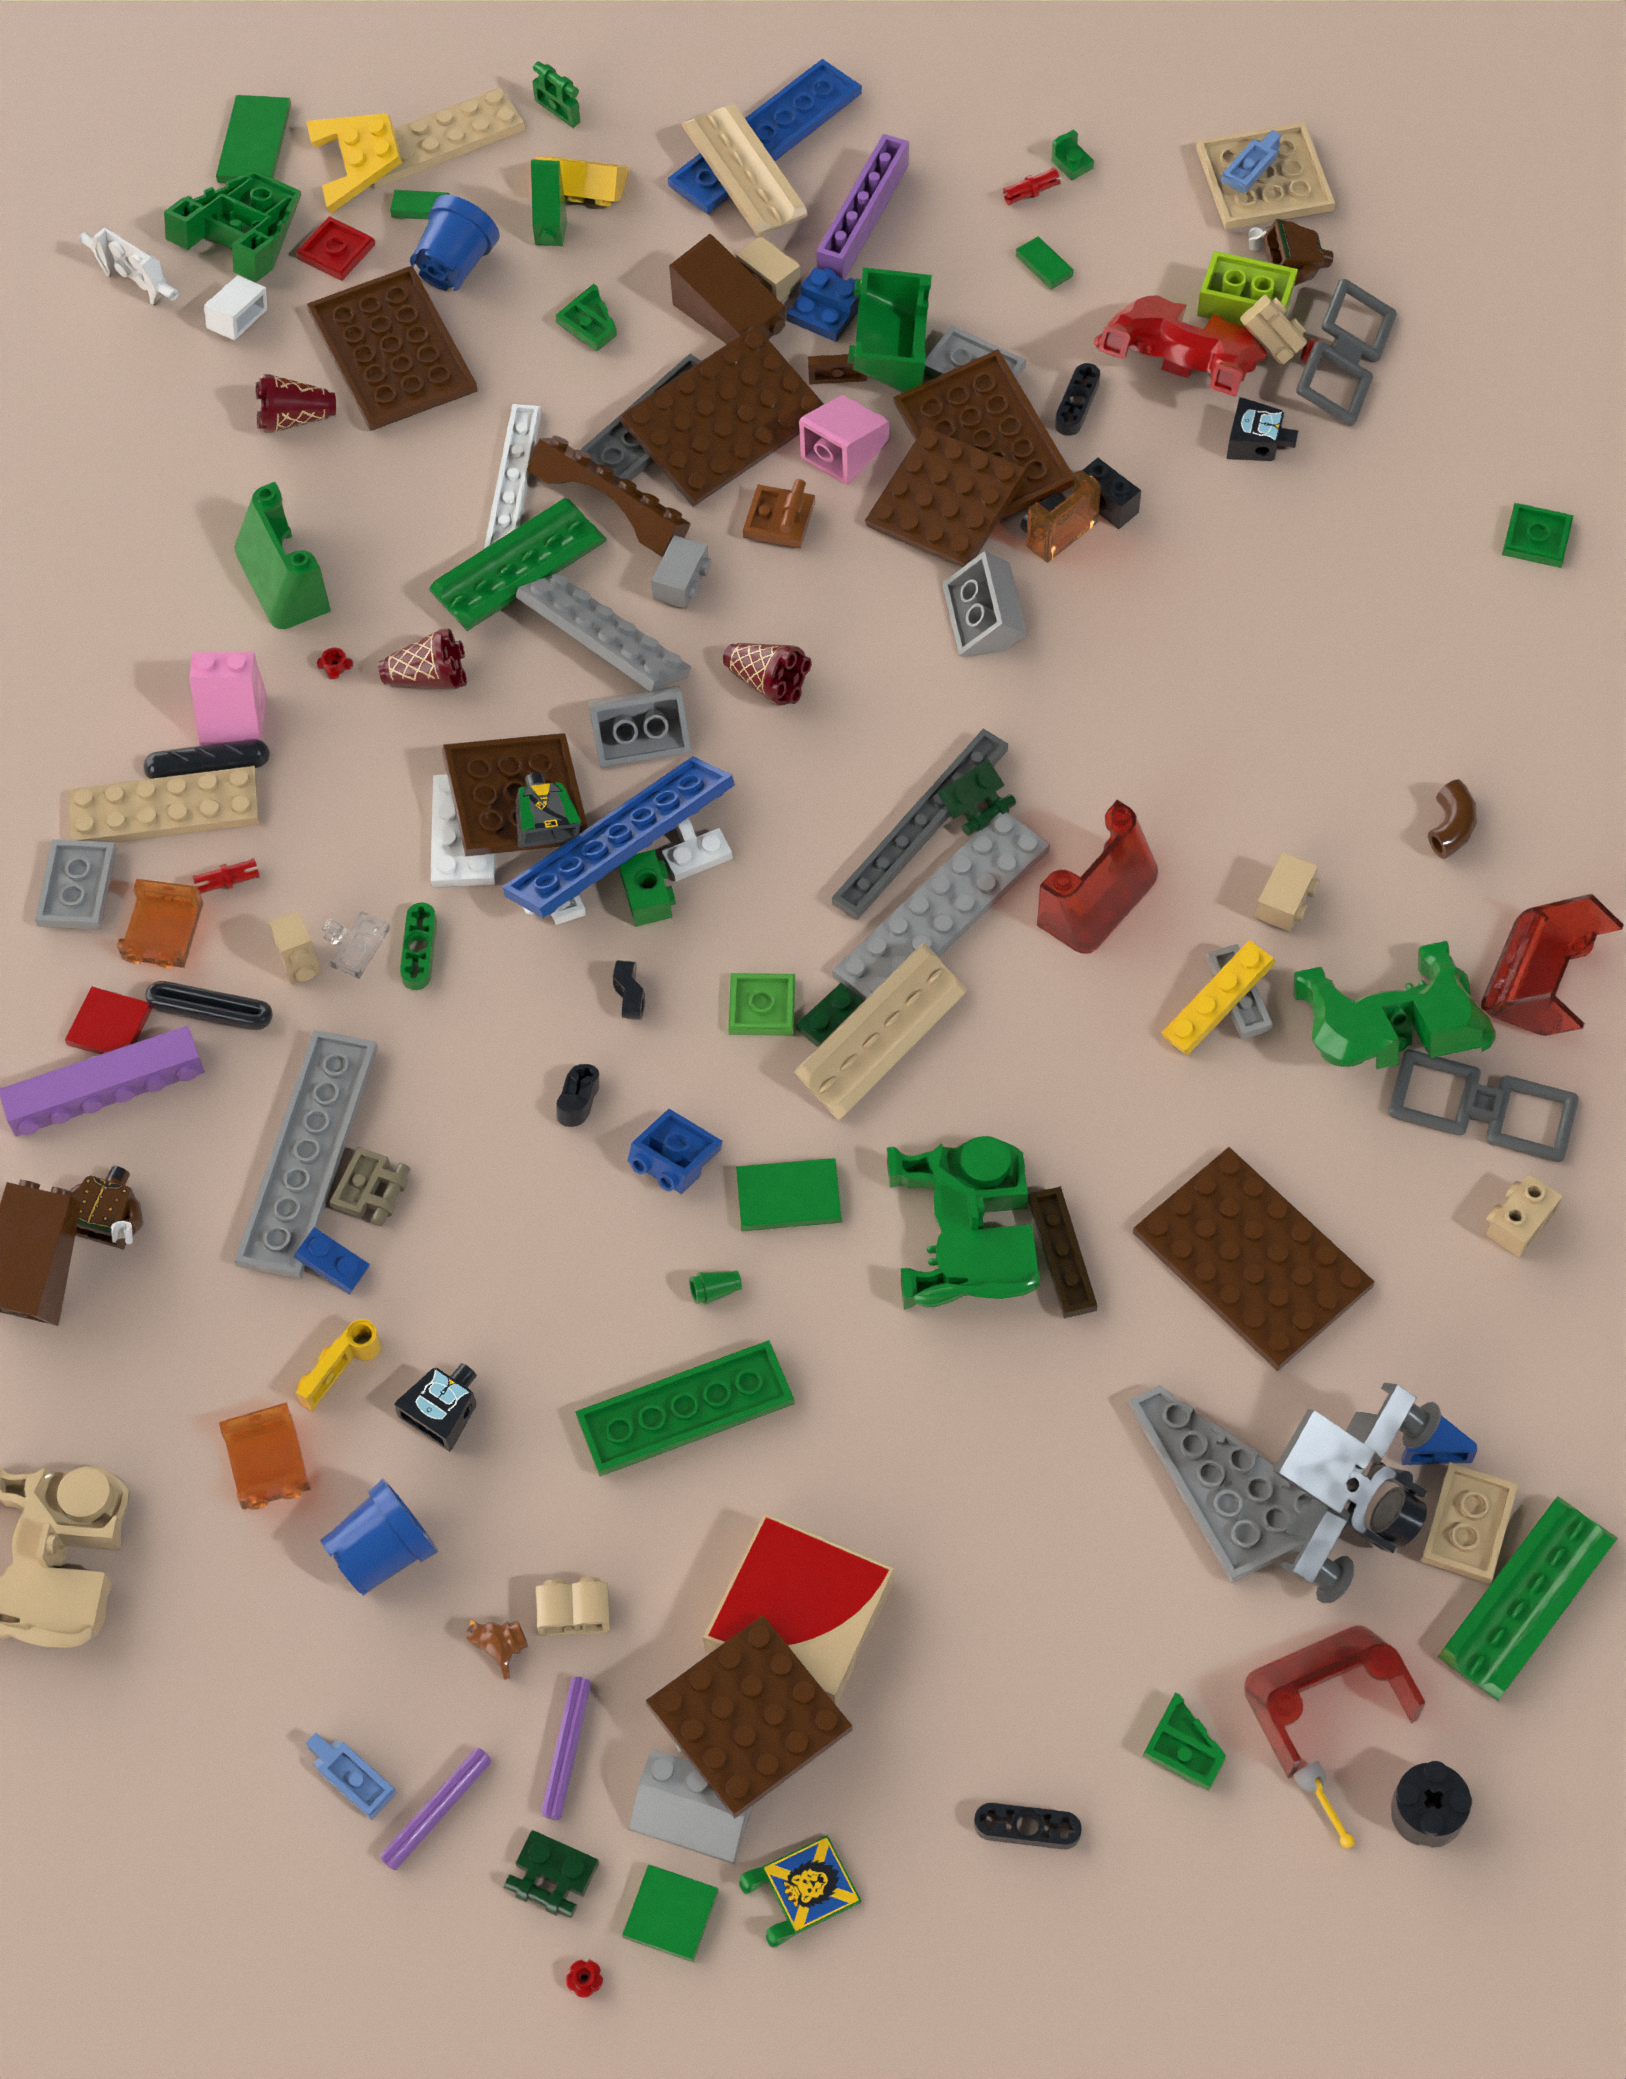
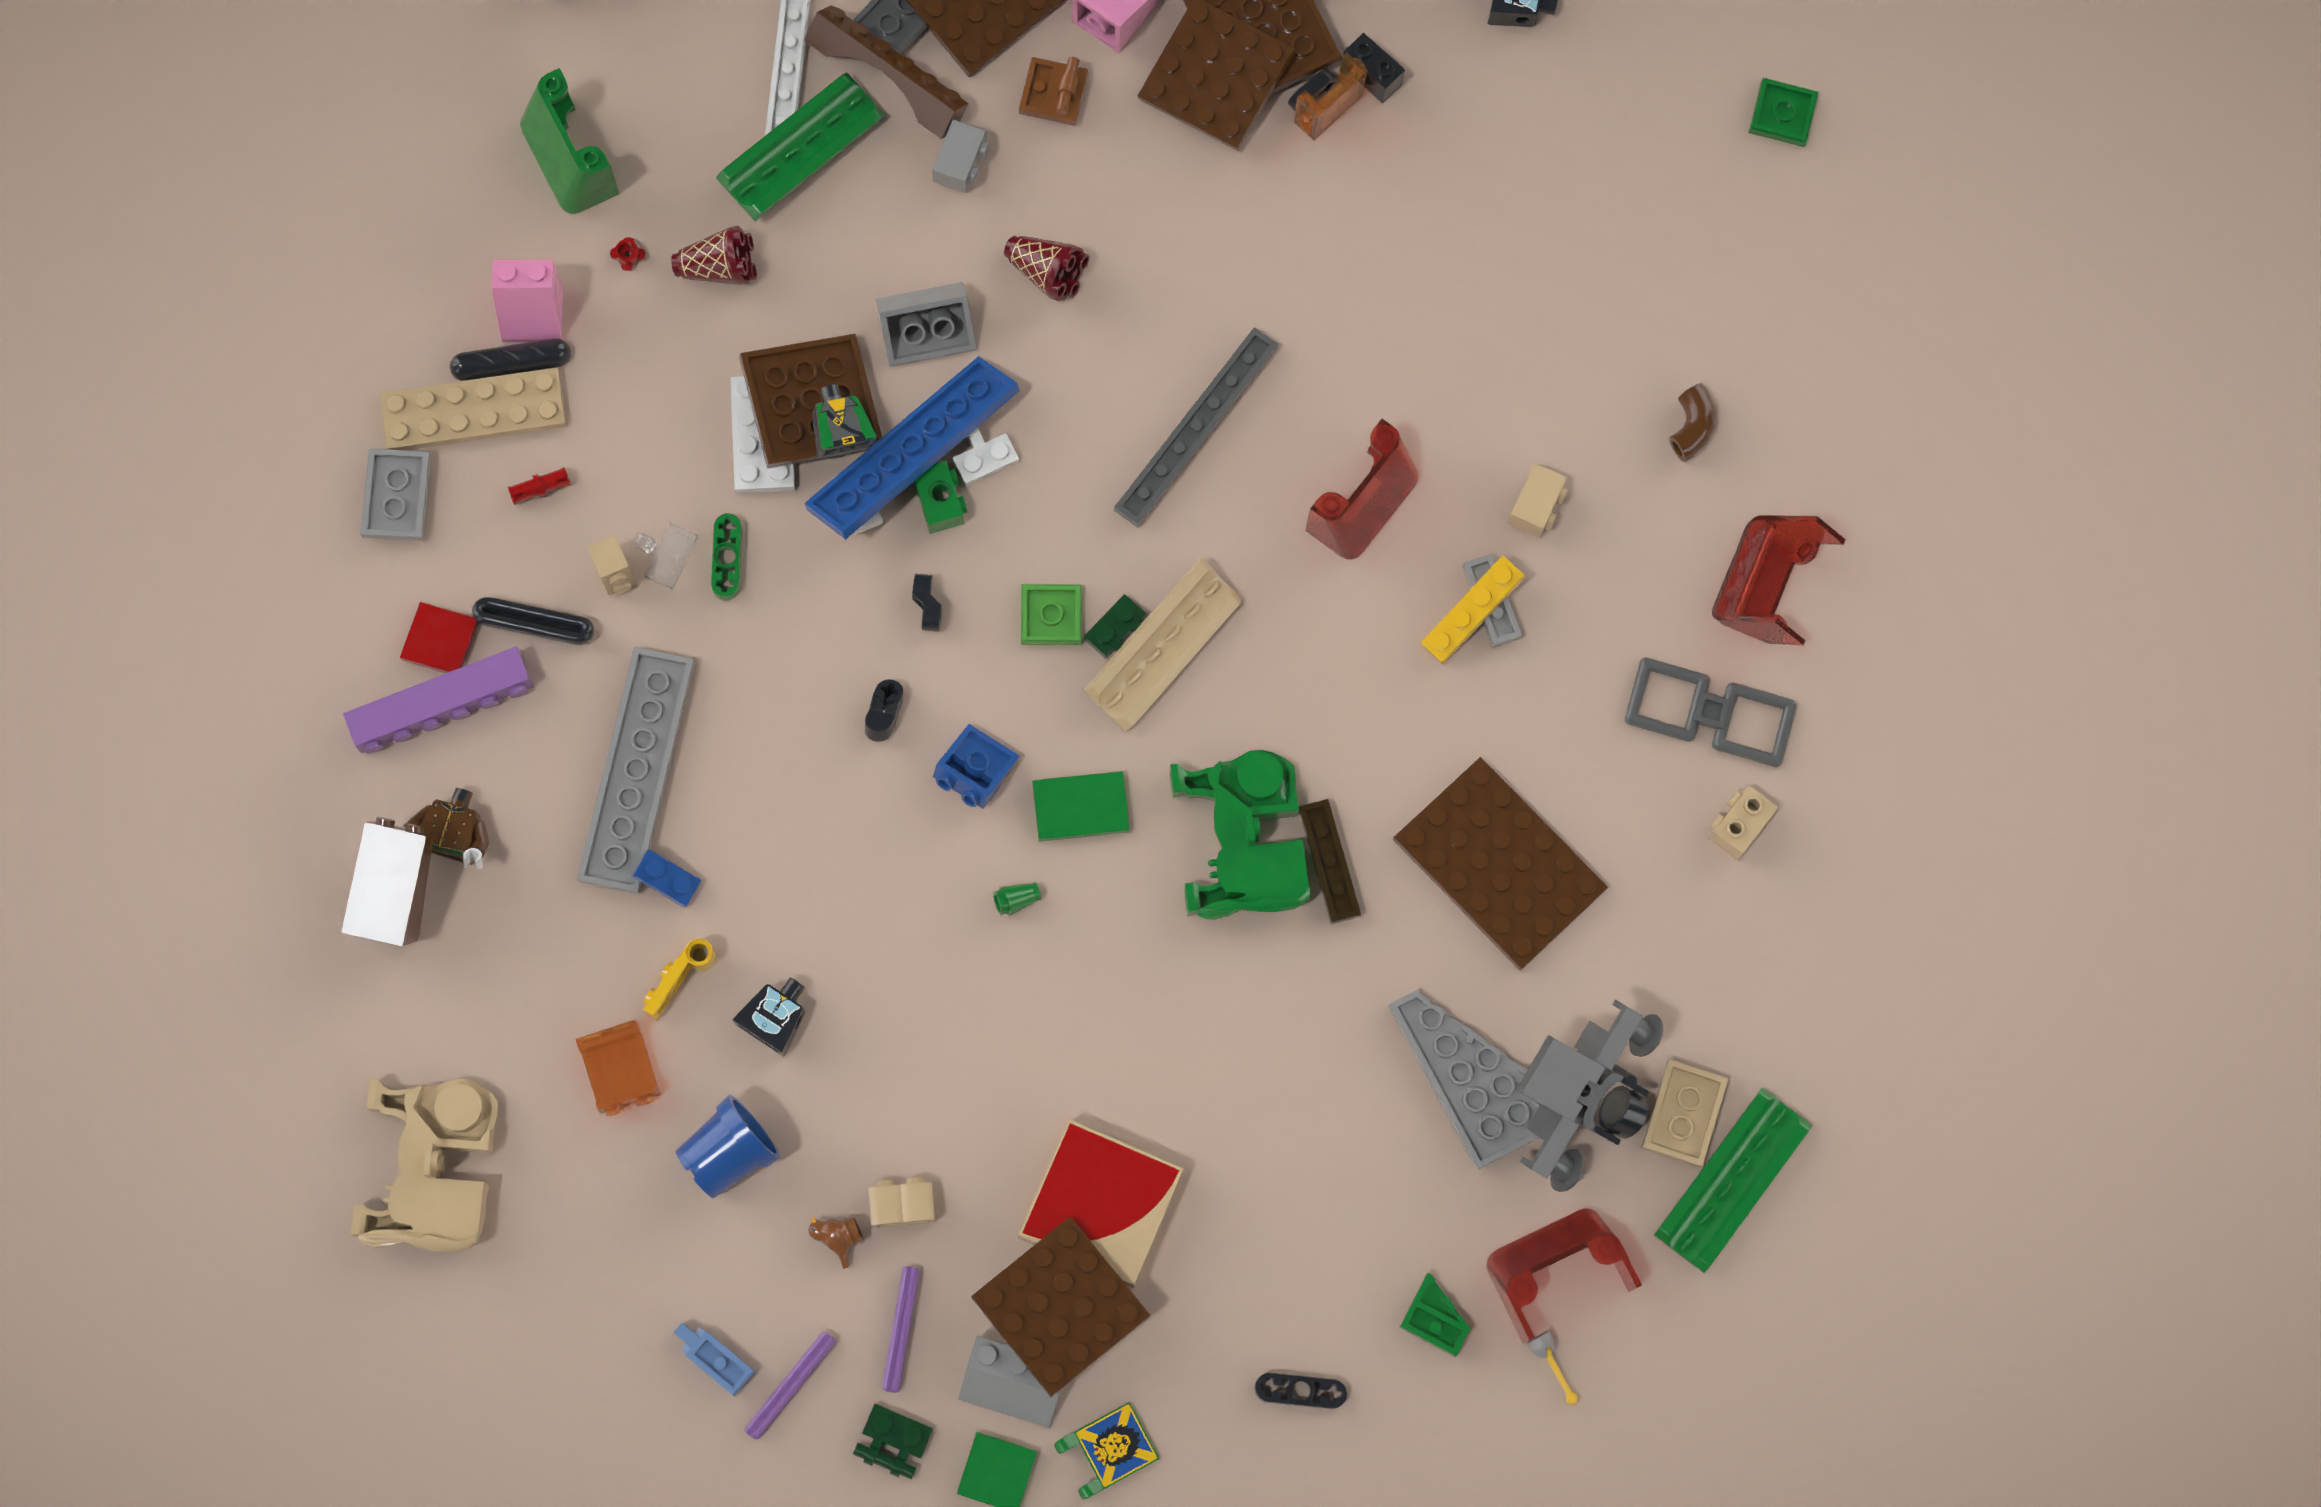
camera: 10 degrees left, 15 degrees up
(161, 924) = (481, 537): clear orange panel -> none
(360, 1182) = (687, 801): dark tan plate -> none
(604, 632) = (887, 222): light grey plate -> none
(684, 1408) = (993, 1015): green plate -> none
(945, 903) = (1219, 511): light grey plate -> none
(970, 790) = (1243, 394): dark green plate -> none
(984, 606) = (1254, 193): light grey slope -> none
(1384, 1021) = (1608, 643): green animal -> none
(1434, 1784) = (1661, 1372): black brick -> none
(1445, 1446) = (1671, 1044): blue slope -> none

